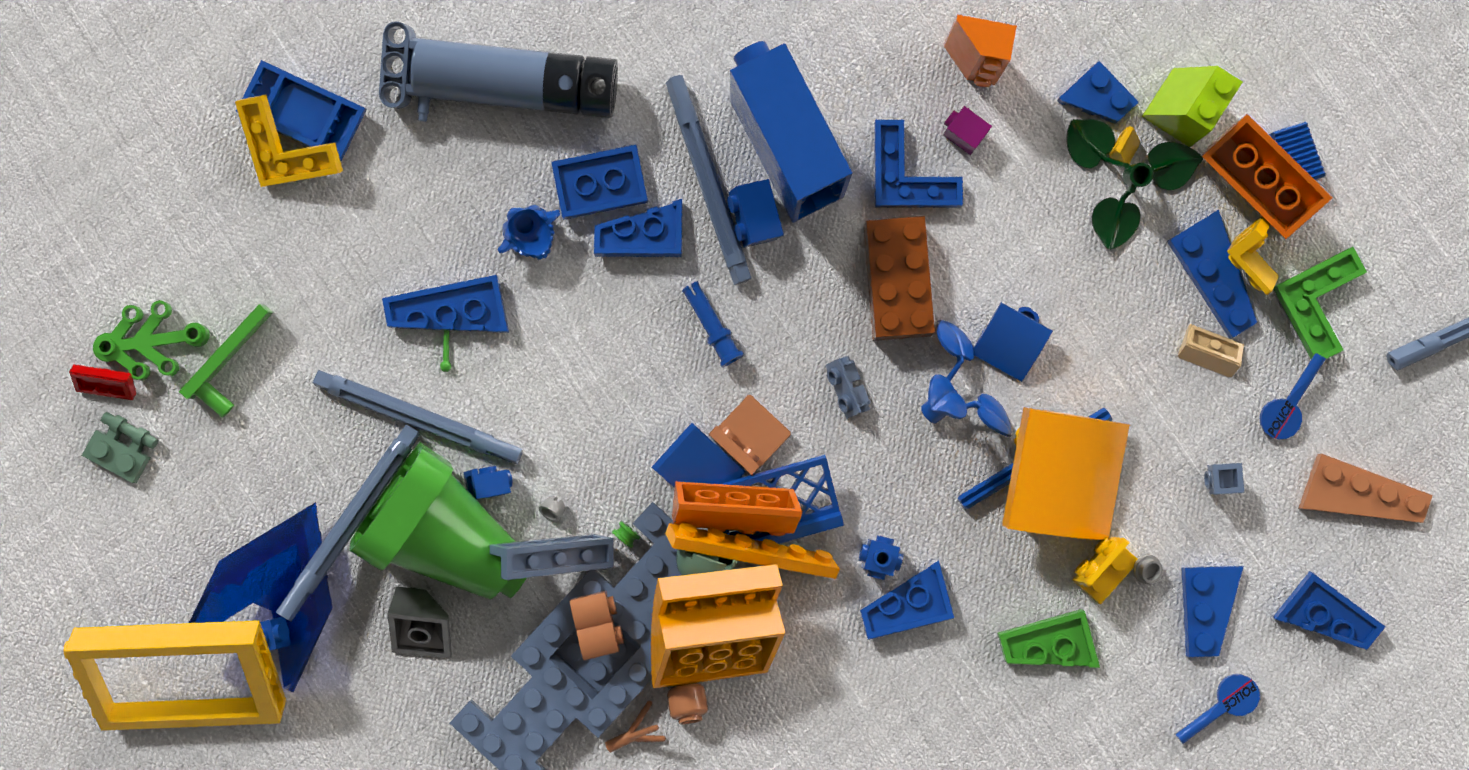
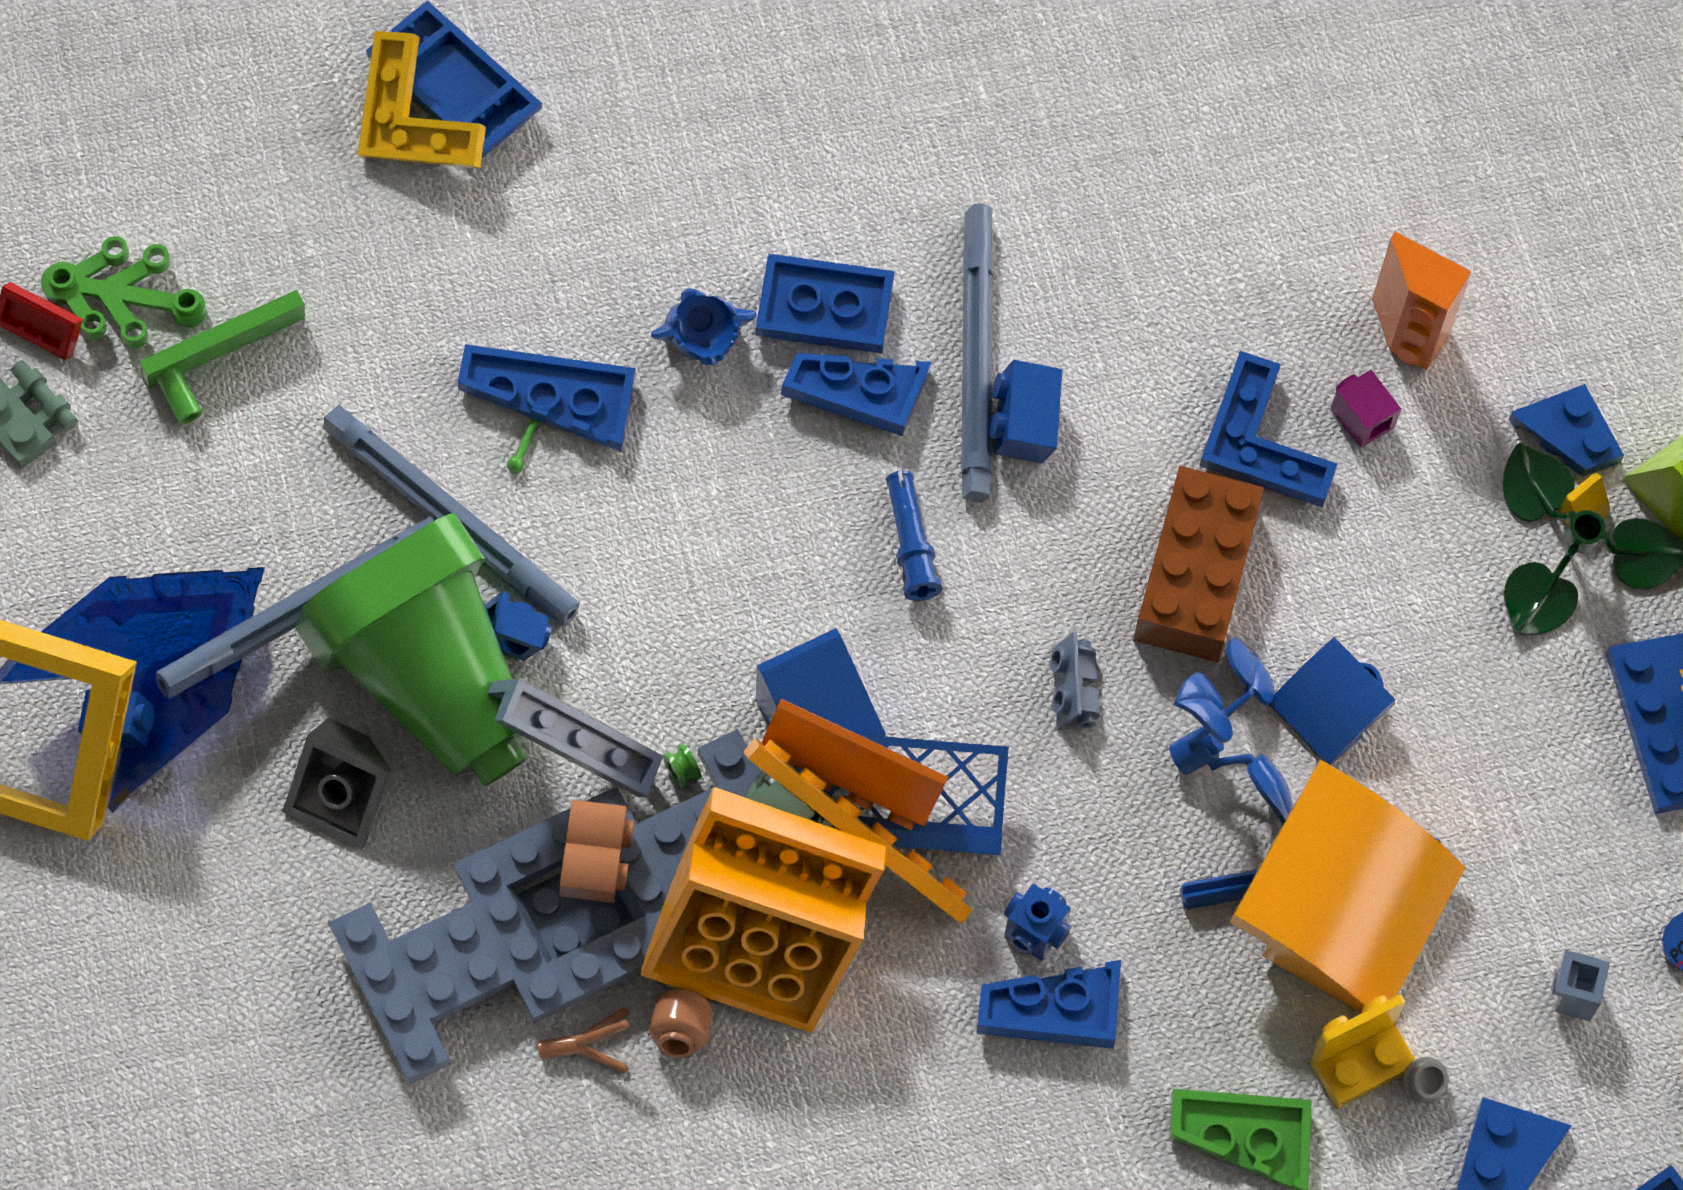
camera: 15 degrees right, 20 degrees down
(494, 76) = (735, 121): sand blue piece -> none
(552, 509) = (587, 692): light grey hinge -> none
(750, 434) = (912, 694): nougat bracket -> none
(787, 130) = (1110, 311): blue brick -> none
(1211, 351) = (1621, 819): tan slope -> none

